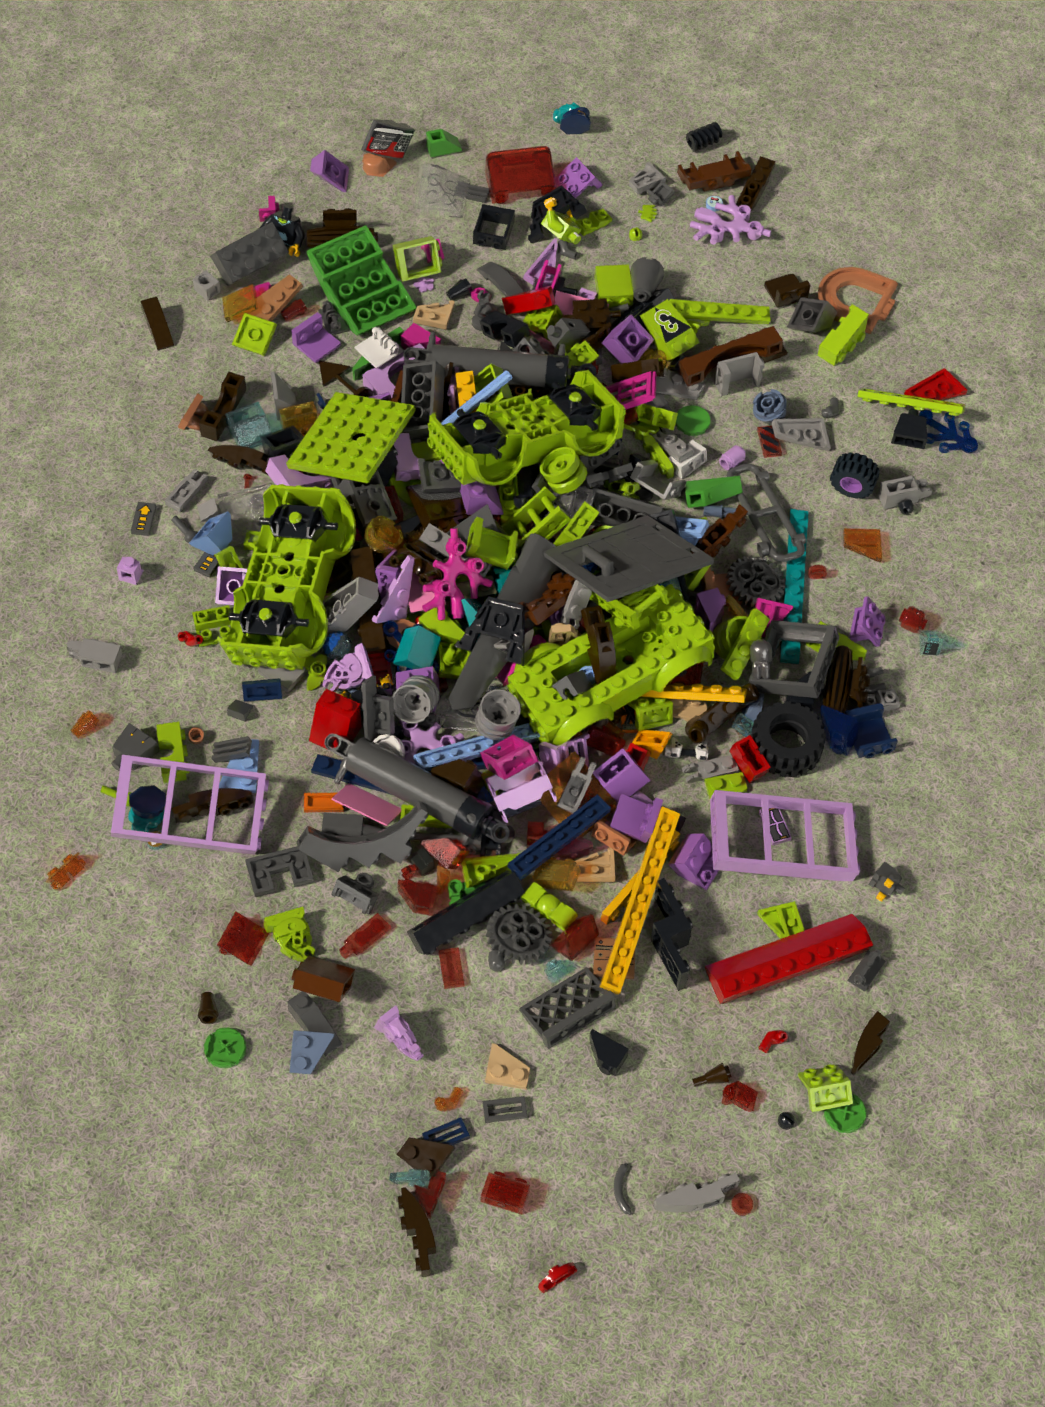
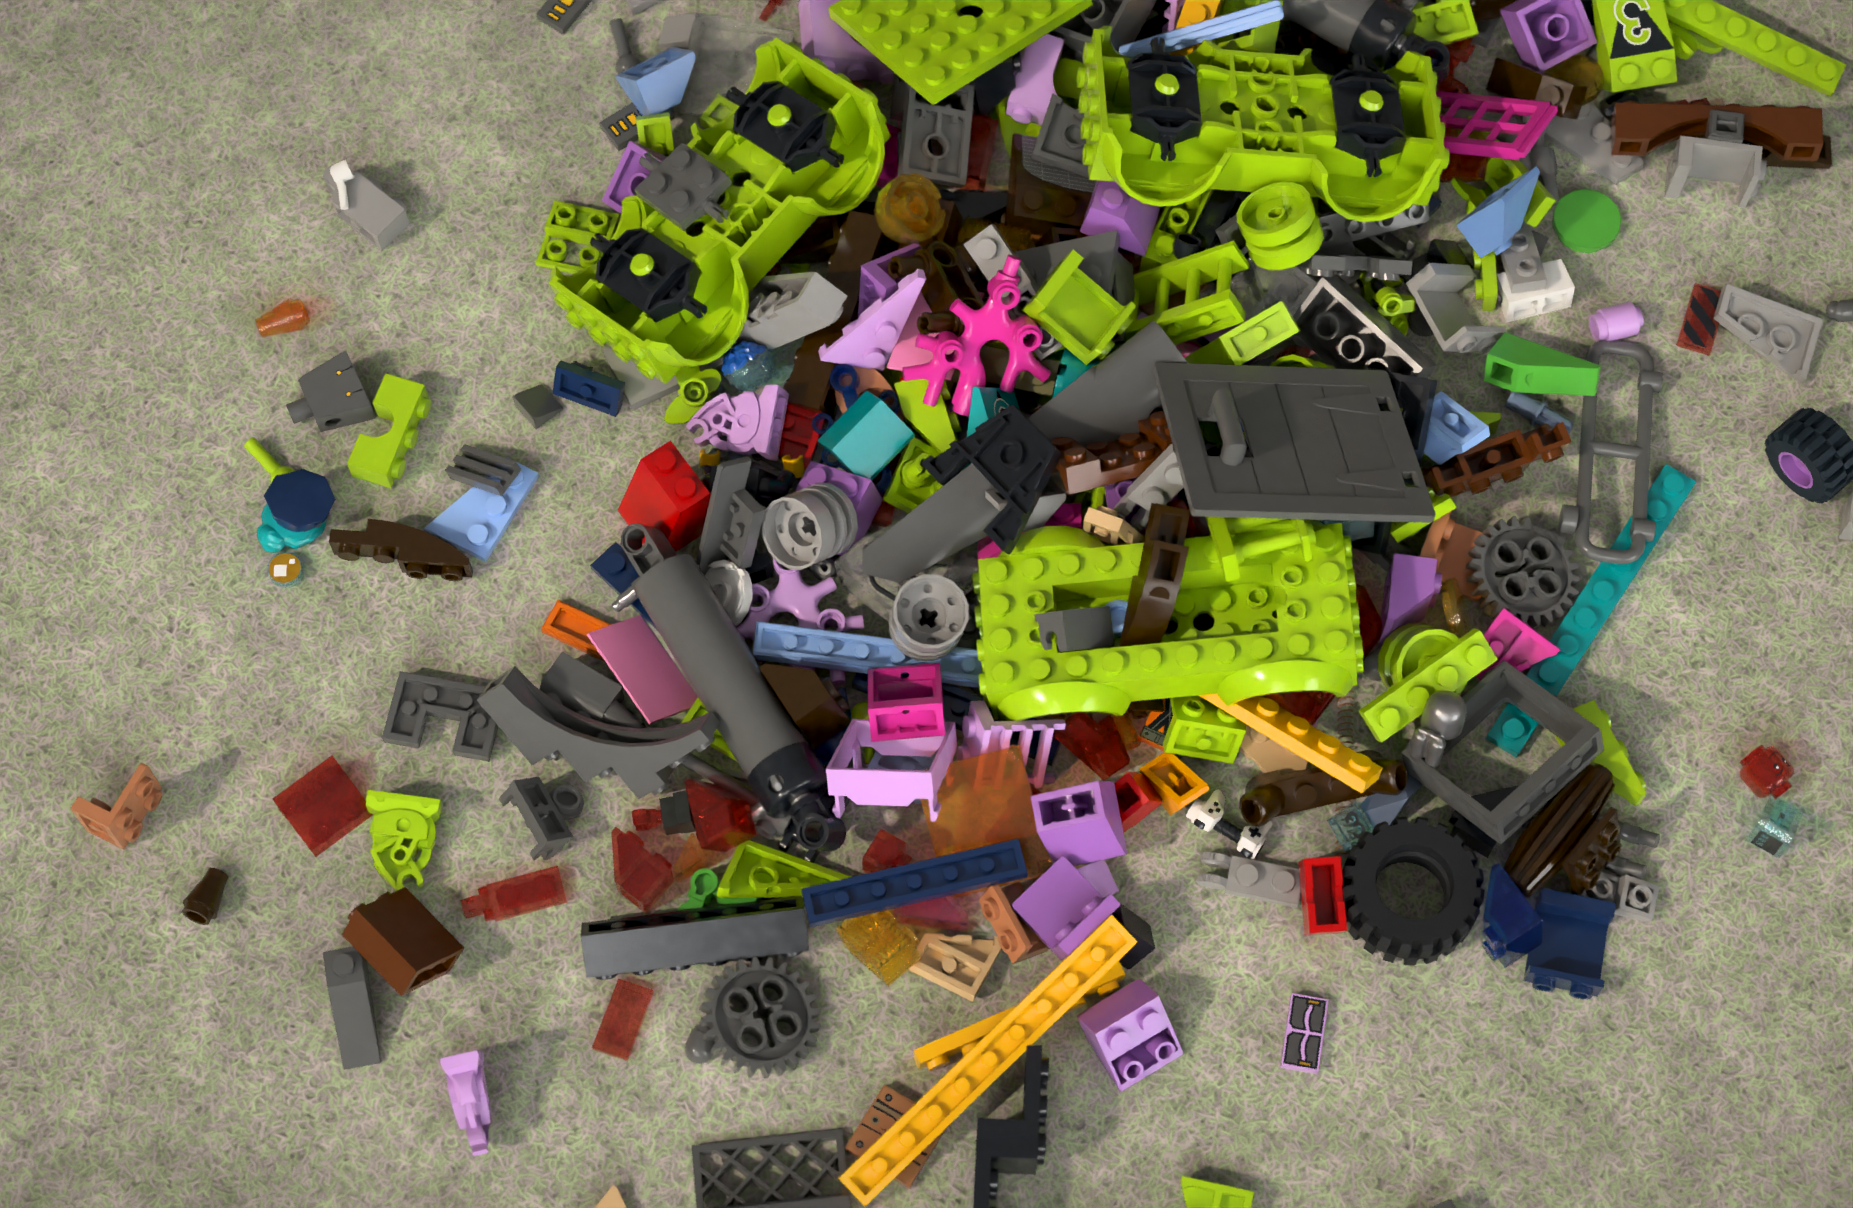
camera: 30 degrees right, 10 degrees up
(58, 876) = (105, 559): clear orange hinge -> none
(78, 640) = (341, 173): none -> white hand
(122, 793) = (248, 477): lavender window -> none
(129, 566) = (494, 83): lavender brick -> none
(140, 994) = (122, 821): none -> nougat bracket
(189, 638) = (526, 245): red arm -> none
(195, 732) = (442, 412): nougat hinge -> none
(225, 1047) = (198, 976): bright green tile -> none
(264, 571) = (683, 187): none -> dark grey plate
(308, 1050) = (315, 1048): sand blue wing -> none
(549, 906) = (837, 994): lime piece -> none
(555, 970) = (787, 1109): clear light blue plate -> none
(576, 787) = (988, 809): light grey hinge -> none
(576, 937) = (850, 1070): clear red slope -> none
(656, 429) = (1499, 215): none -> medium blue slope
(720, 846) = (1186, 1010): lavender window -> none
(730, 782) = (1254, 927): lime wing -> none
(735, 350) = (1725, 126): none -> dark grey slope
(769, 406) = (1735, 256): sand blue cone -> none
(817, 572) = (1645, 603): clear red tile -> none
(864, 542) = (1763, 586): clear orange wing -> none
(867, 623) = (1680, 742): medium lavender bracket -> none

